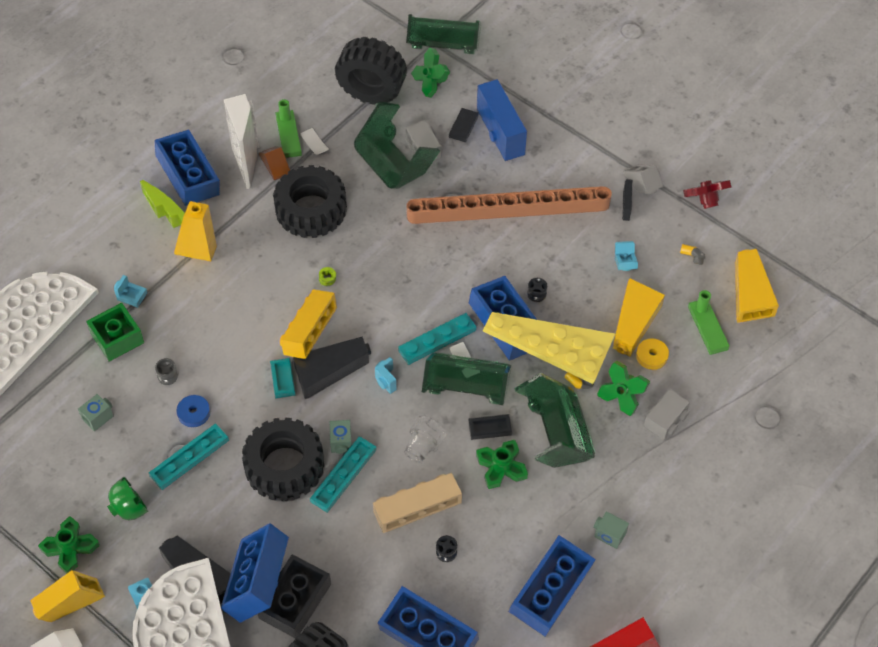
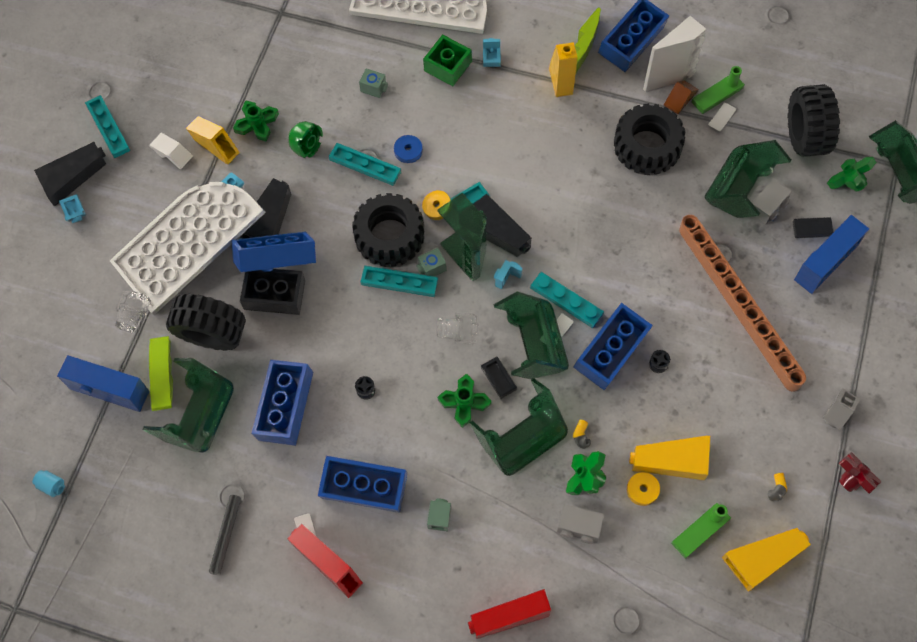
camera: 70 degrees right, 10 degrees up
(166, 371) = (431, 113): dark grey wheel -> none
(275, 398) = (431, 200): none -> yellow piece
(308, 324) = (523, 191): yellow brick -> none
(327, 271) = (580, 187): lime bush -> none
(348, 396) = (468, 242): none -> clear green windscreen
(417, 502) = (397, 348): tan brick -> none
(564, 346) = (602, 408): light yellow wing -> none
(625, 256) = (738, 425): medium azure bracket -> none
(627, 200) = (806, 403): black tile -> none
(733, 502) = (510, 614): none -> red slope

